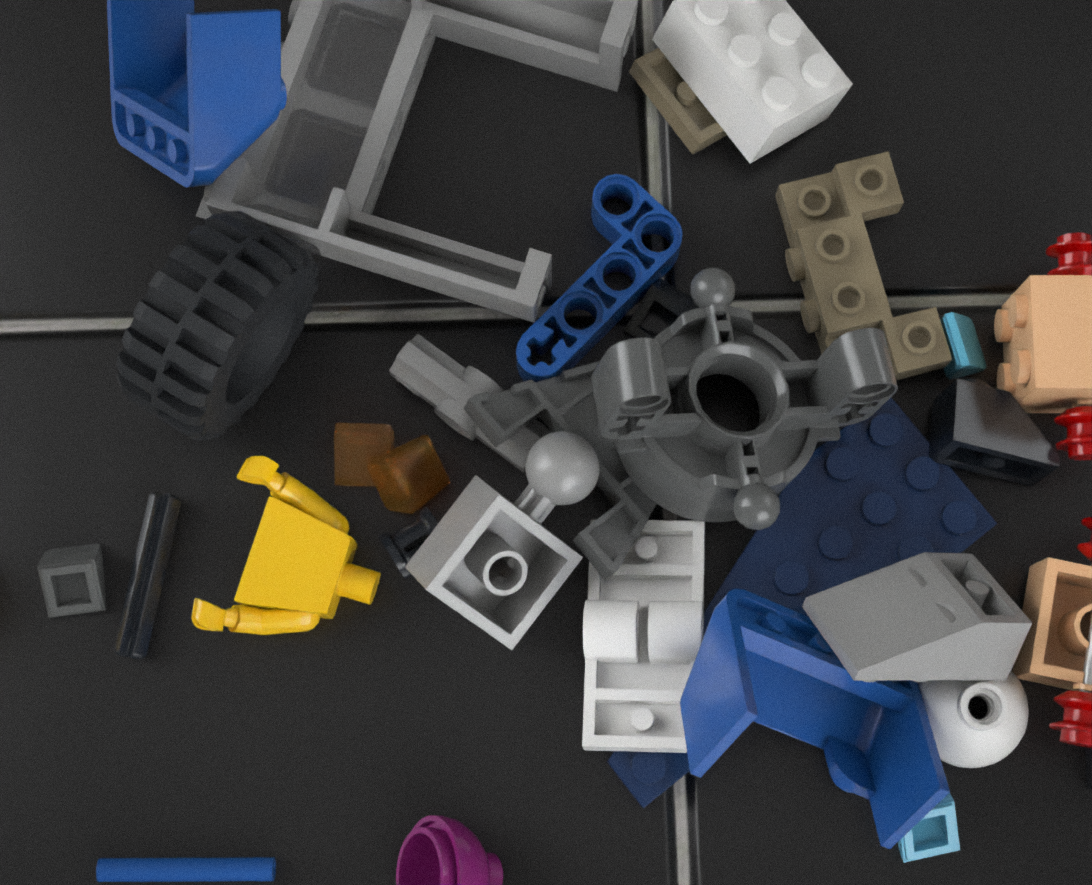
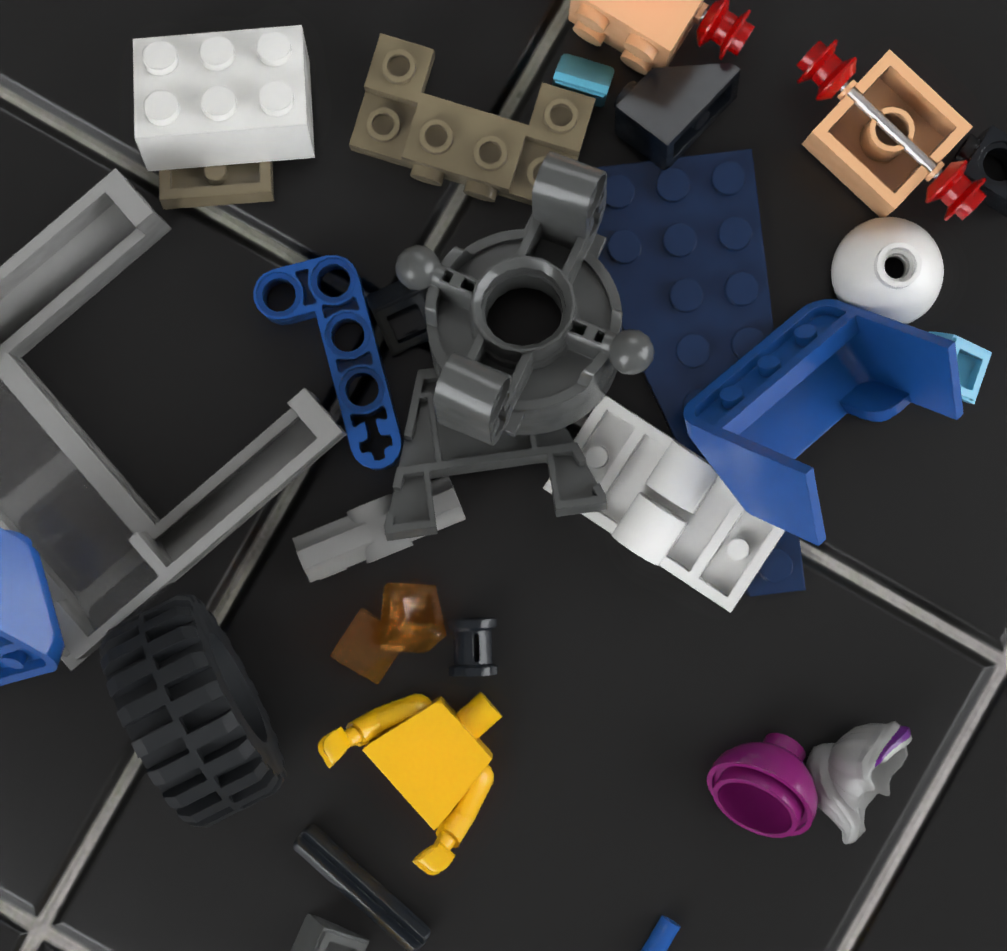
camera: 60 degrees left, 10 degrees up
(495, 554) = (536, 584): light grey brick -> none
(922, 621) = (801, 272): light grey slope -> none

